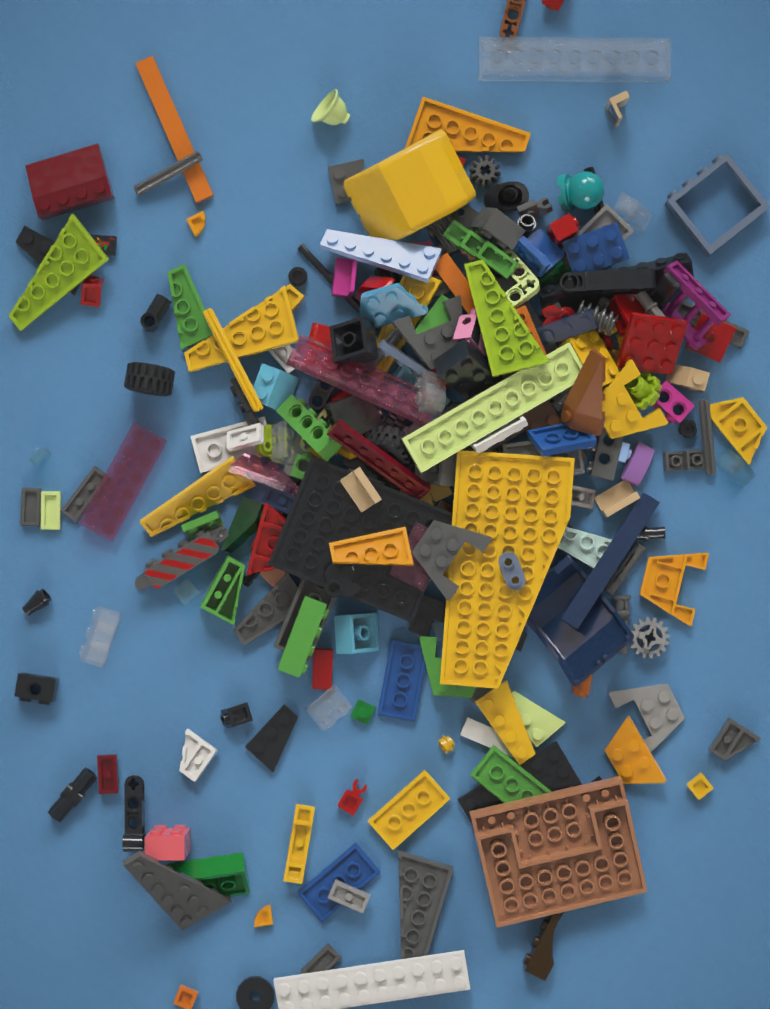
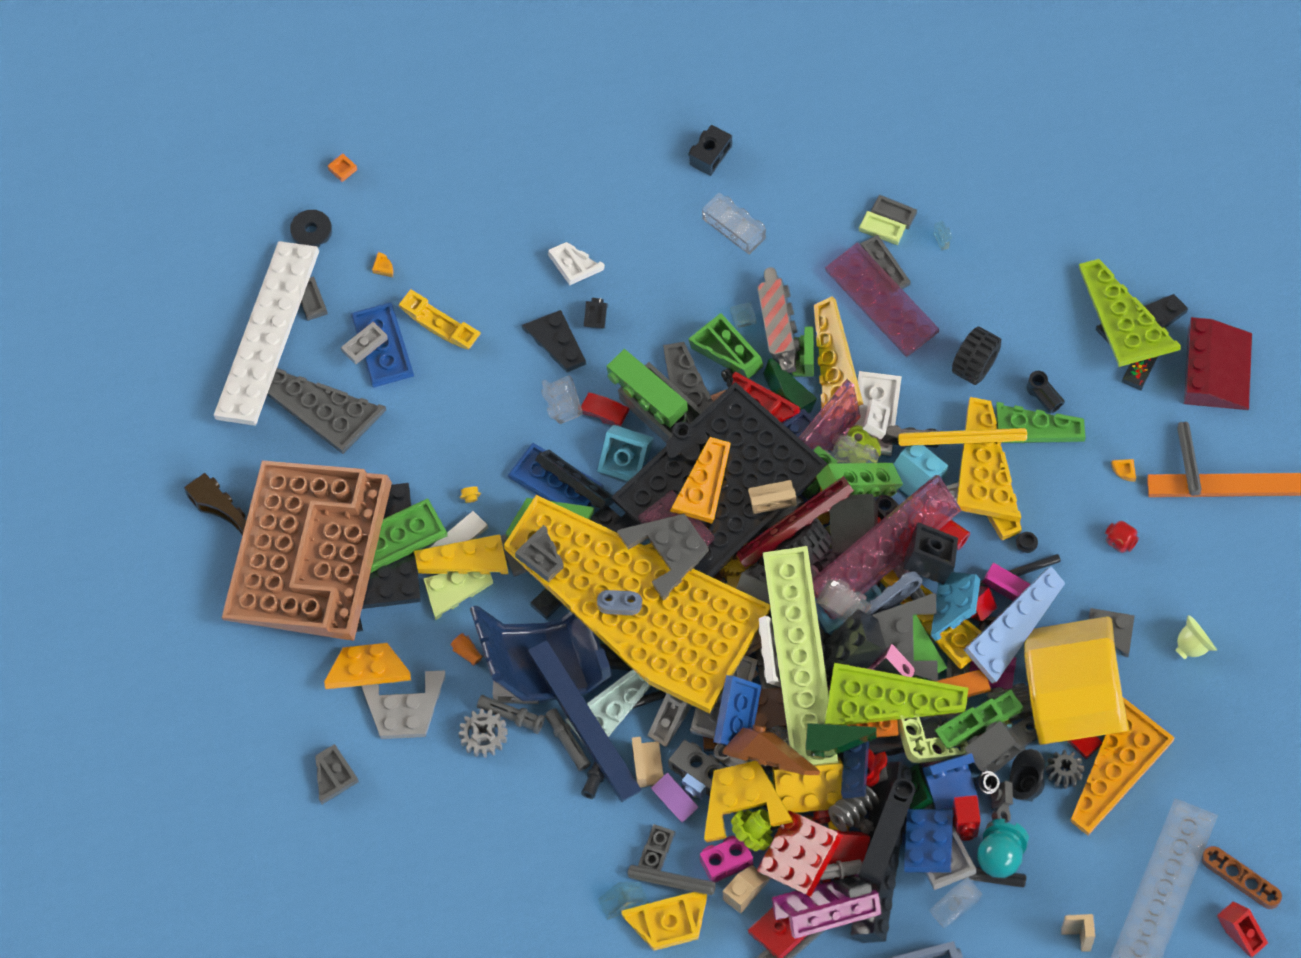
camera: 115 degrees right, 25 degrees down
(38, 601) = (795, 182): black cone -> none
(72, 794) = (589, 143): black piece -> none
(91, 291) = (1093, 342): red bracket -> none
(108, 774) = (594, 180): dark red plate -> none
(134, 838) = (519, 178): black piece -> none
(168, 843) = (500, 198): coral brick -> none
(177, 893) = (449, 186): dark grey wing -> none
(223, 873) = (447, 228): green slope -> none
(262, 202) = (1121, 536): none -> red head
(351, 800) = (459, 384): red plate -> none
(362, 711) = (542, 431): green plate -> none
(400, 662) = (569, 475): none -> black plate
(408, 809) = (421, 434): yellow plate -> none
(498, 652) = (540, 555): none -> dark grey wing
(558, 350) = (829, 740): none -> dark green slope
(663, 581) = (534, 772): light orange wing -> none
(692, 428) = (685, 862): black plate -> none
(699, 786) = (301, 721): yellow plate -> none

